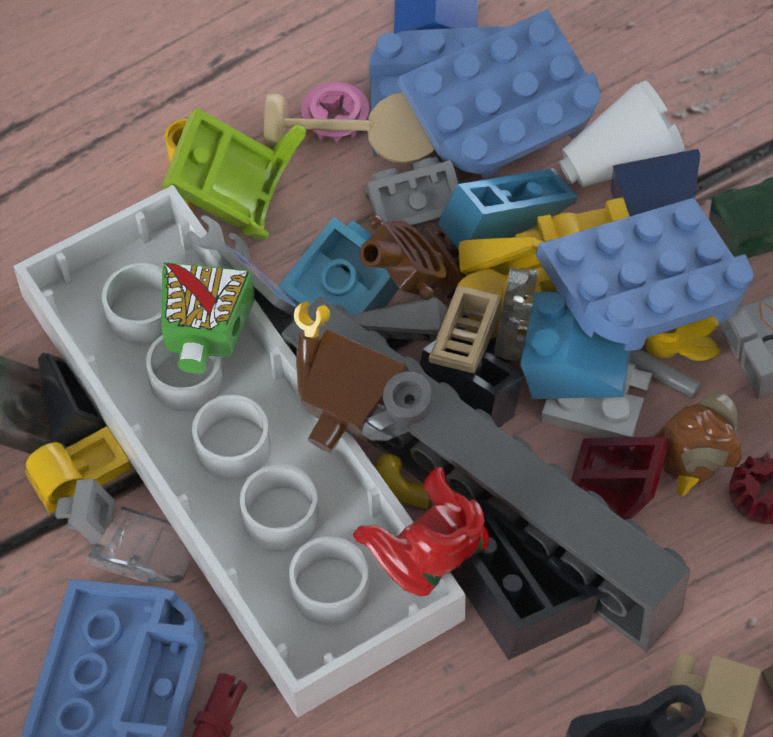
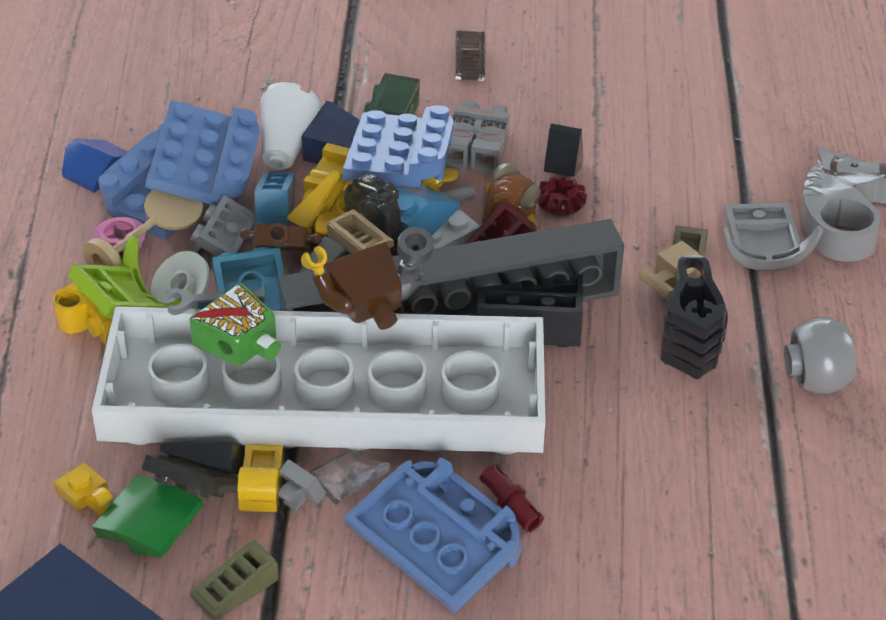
camera: 60 degrees left, 15 degrees down
(297, 212) = (182, 271): none -> white dish
(432, 543) = (502, 303): red hair -> none

